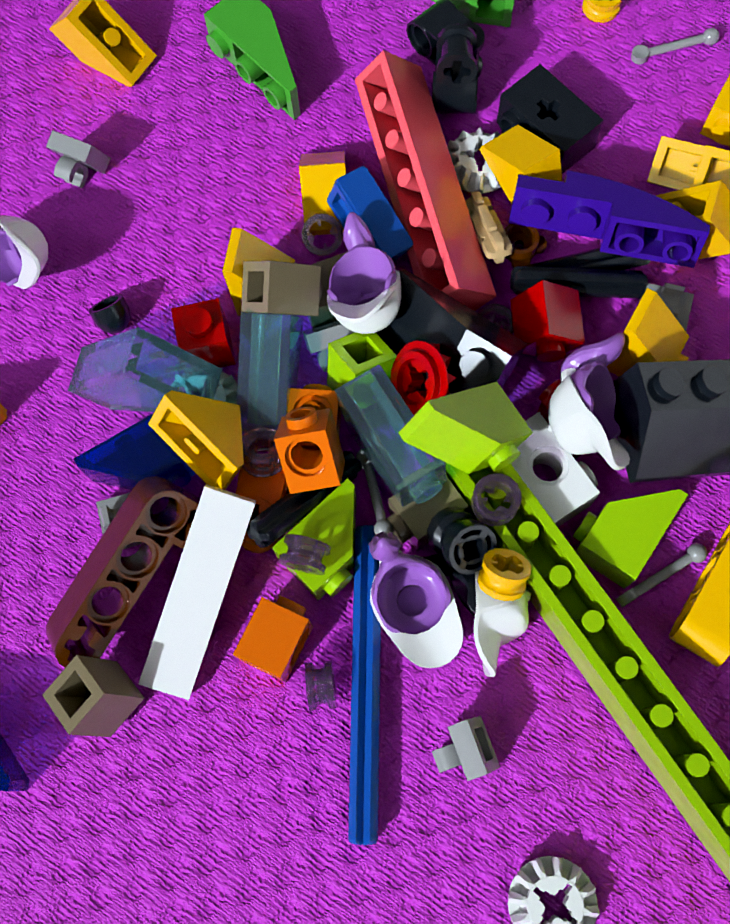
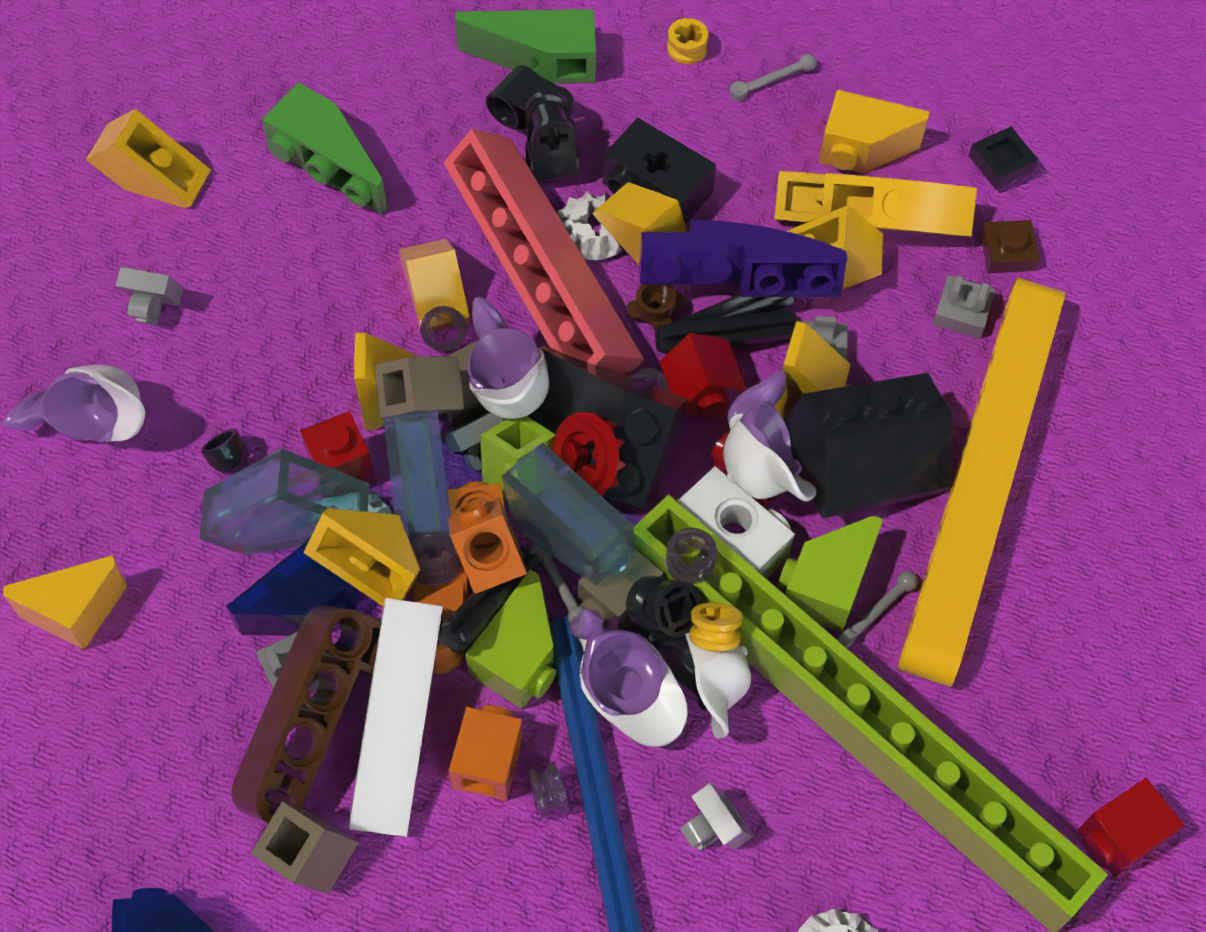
camera: 20 degrees left, 10 degrees down
(304, 554) = (504, 650): bush -> none
(361, 194) = (481, 277): blue slope -> none
(469, 429) = (650, 487): lime slope -> none
(488, 228) = (620, 292): tan axle -> none

